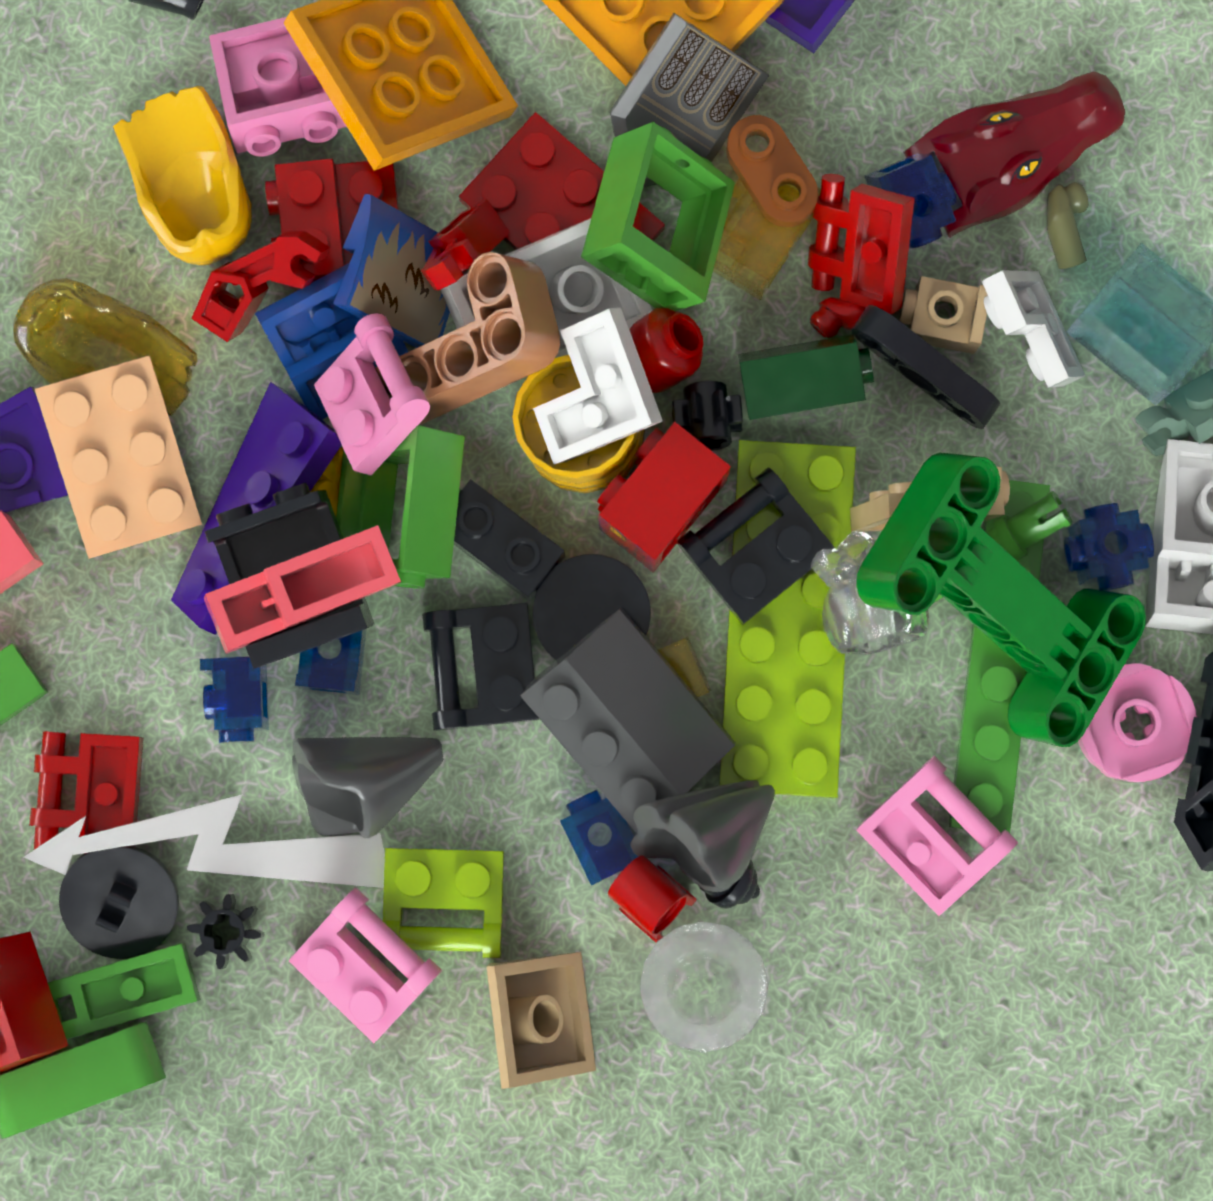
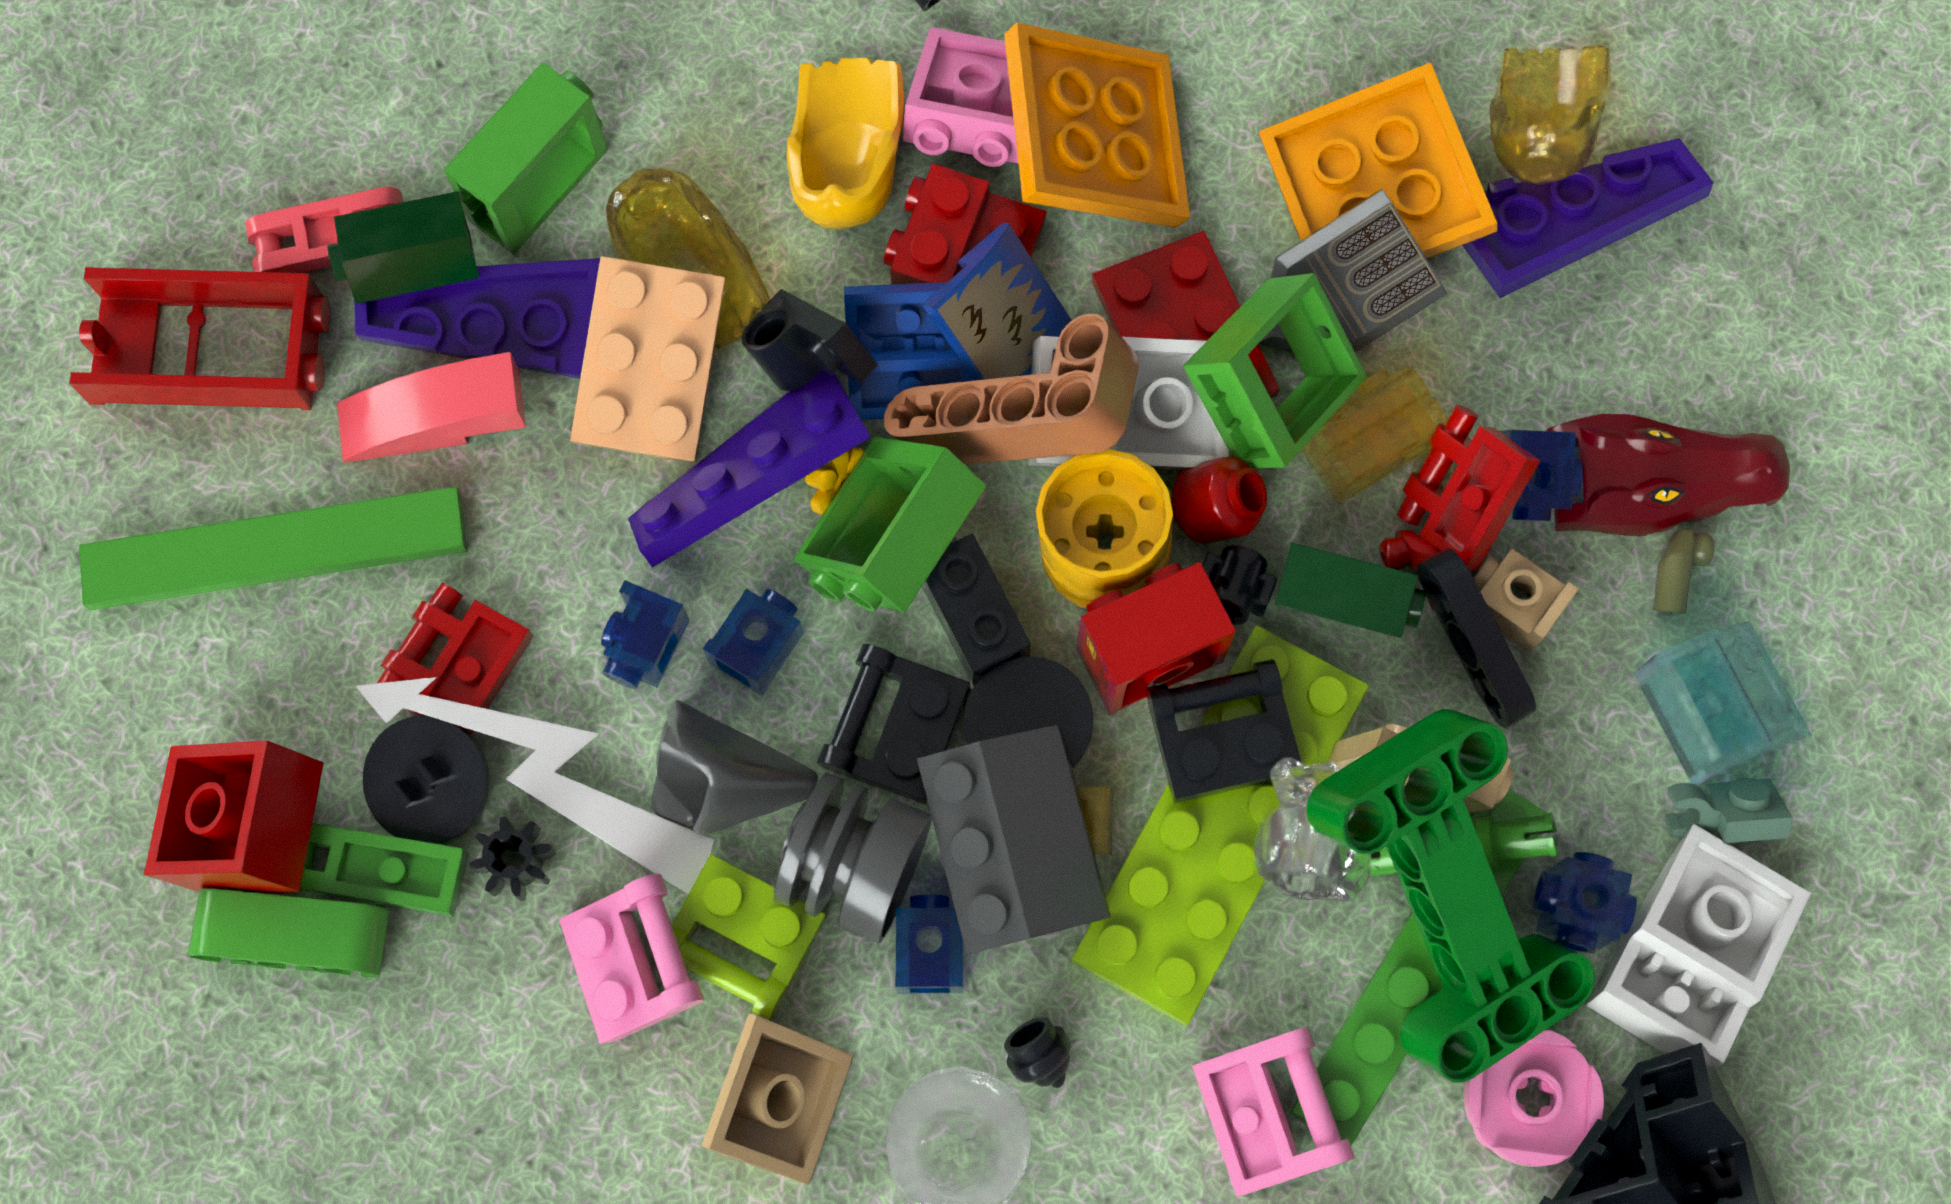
camera: 25 degrees right, 10 degrees down
(239, 381) = (799, 340): none -> black plate
(262, 539) = (751, 536): black panel -> none
(276, 261) = (881, 244): red piece -> none
(301, 589) = (754, 550): coral slope -> none
(357, 402) = (899, 409): bright pink plate -> none
(461, 242) = (1064, 307): red piece -> none
(504, 798) = (851, 857): none -> dark grey wheel
(612, 395) = (1152, 504): white plate -> none
(649, 896) = (948, 1025): red piece -> none
(705, 831) = (1036, 984): dark grey hat -> none
(770, 169) = (1408, 375): dark orange plate -> none
(1023, 306) = (1603, 623): white plate -> none

